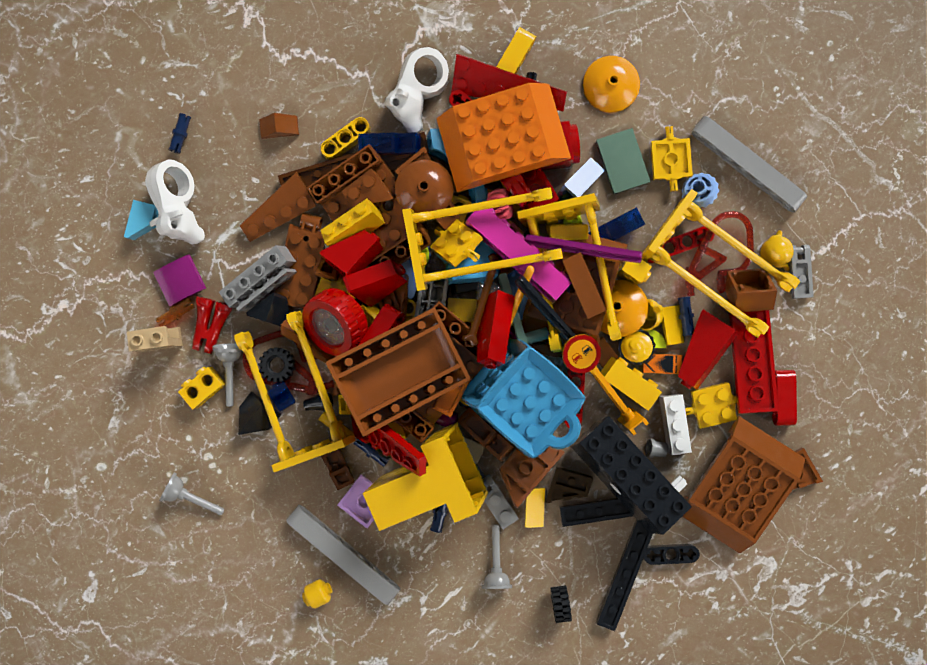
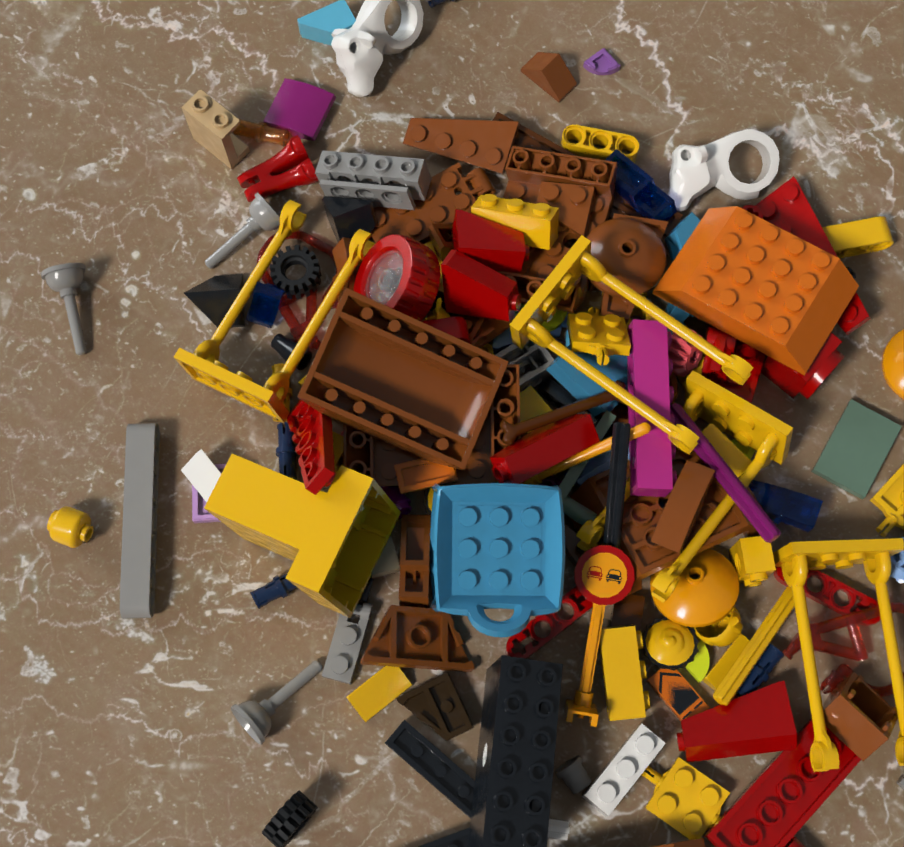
camera: 45 degrees right, 15 degrees down
(205, 391) = (201, 226): yellow brick -> none
(297, 91) = (602, 63): none -> medium lavender tile
(338, 469) = (236, 431): reddish brown slope -> none
(351, 504) = (202, 474): none -> white slope
(581, 180) = (806, 418): slope -> none
(675, 308) = (755, 648): none -> yellow axle

